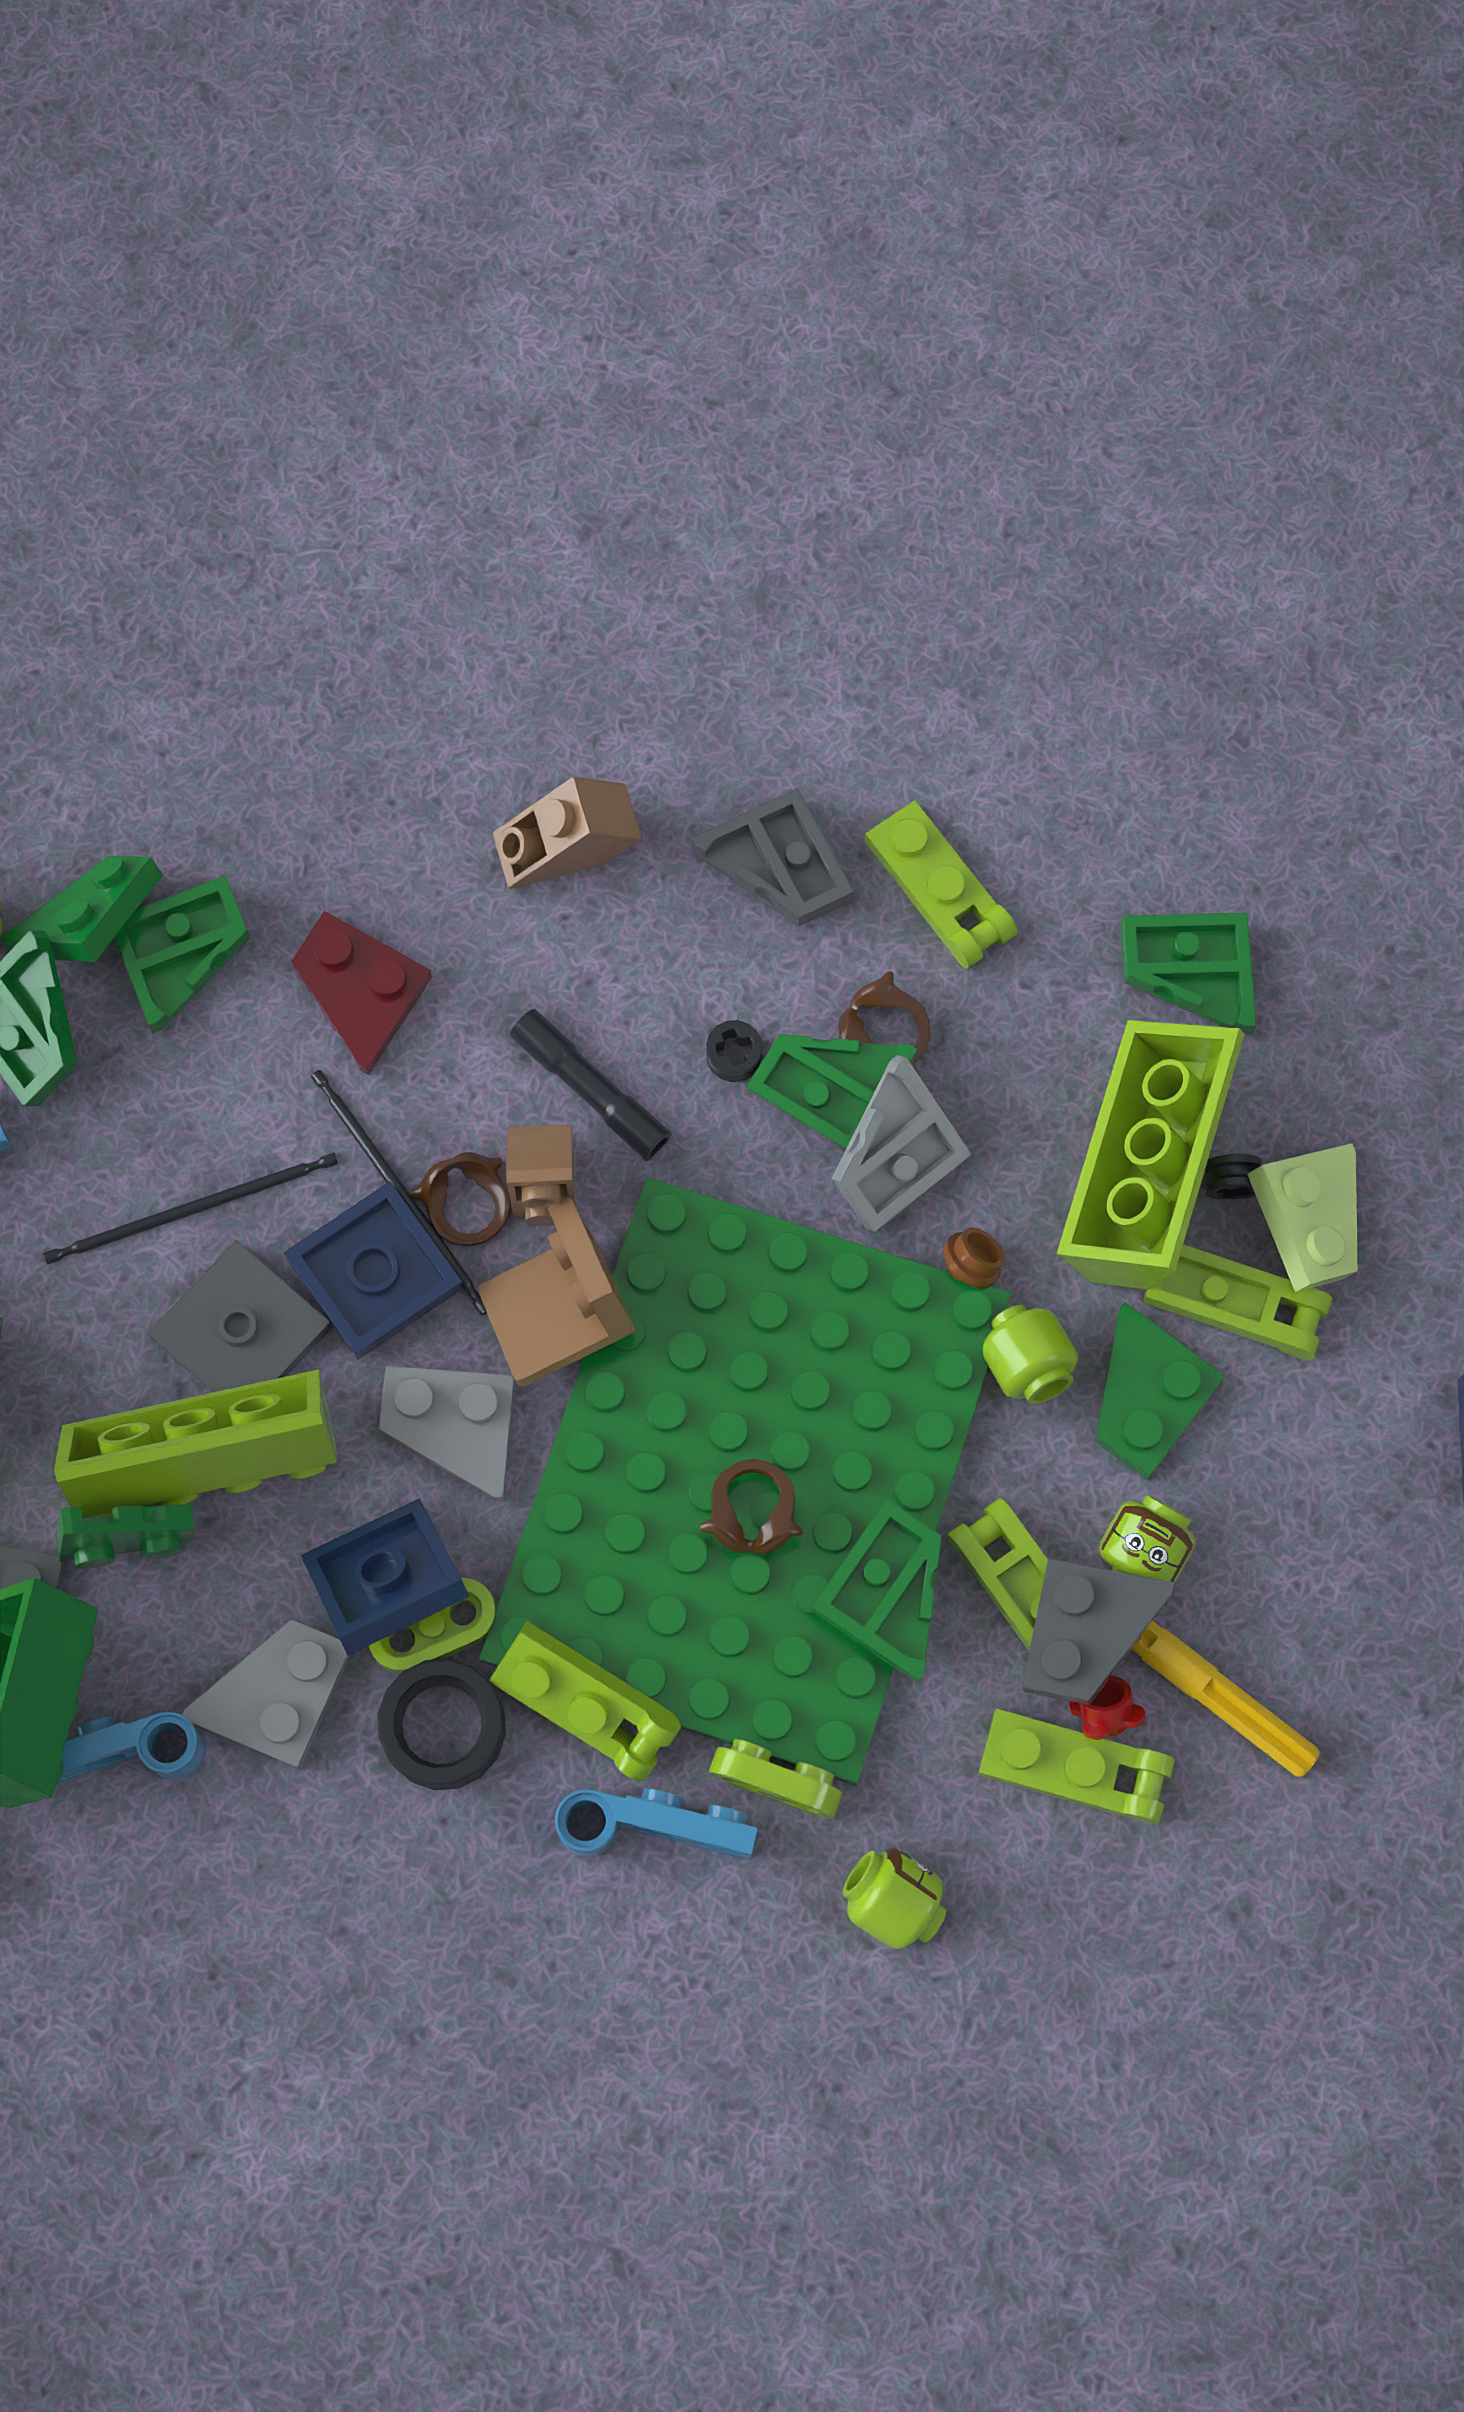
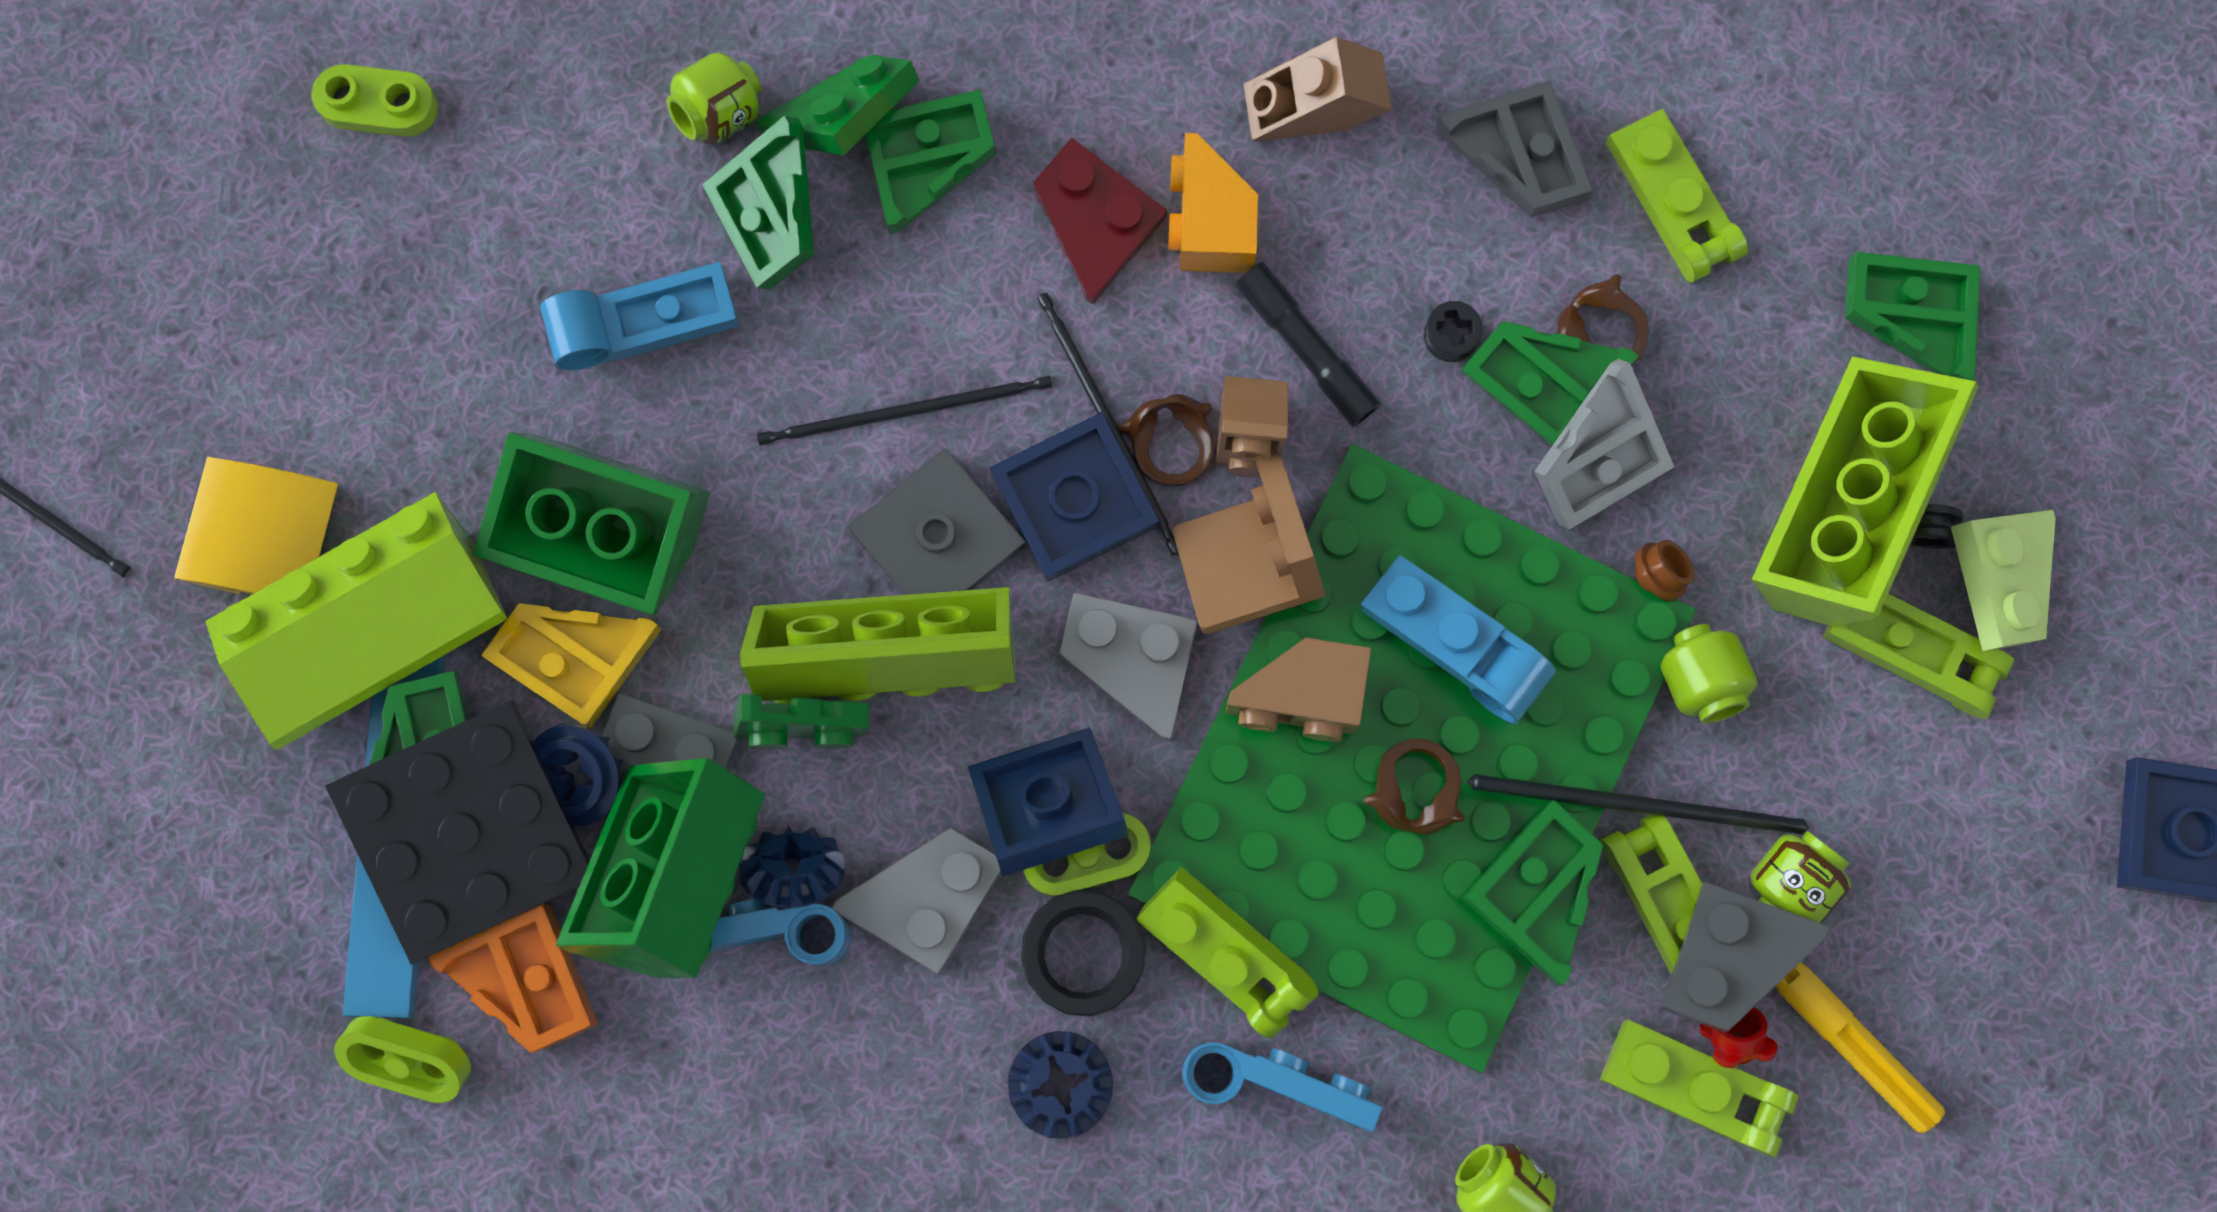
camera: 10 degrees right, 5 degrees up
(114, 1696) = (770, 882): none -> dark blue gear
(467, 1869) = (1031, 1070): none -> dark blue gear
(480, 966) = (1216, 213): none -> light orange slope
(626, 1423) = (1307, 686): none -> medium nougat slope
(750, 1769) = (1430, 1070): lime plate -> none
(775, 1354) = (1460, 639): none -> dark azure plate
(975, 1492) = (1637, 804): none -> black axle
(1149, 1392) = (1819, 727): green wing -> none

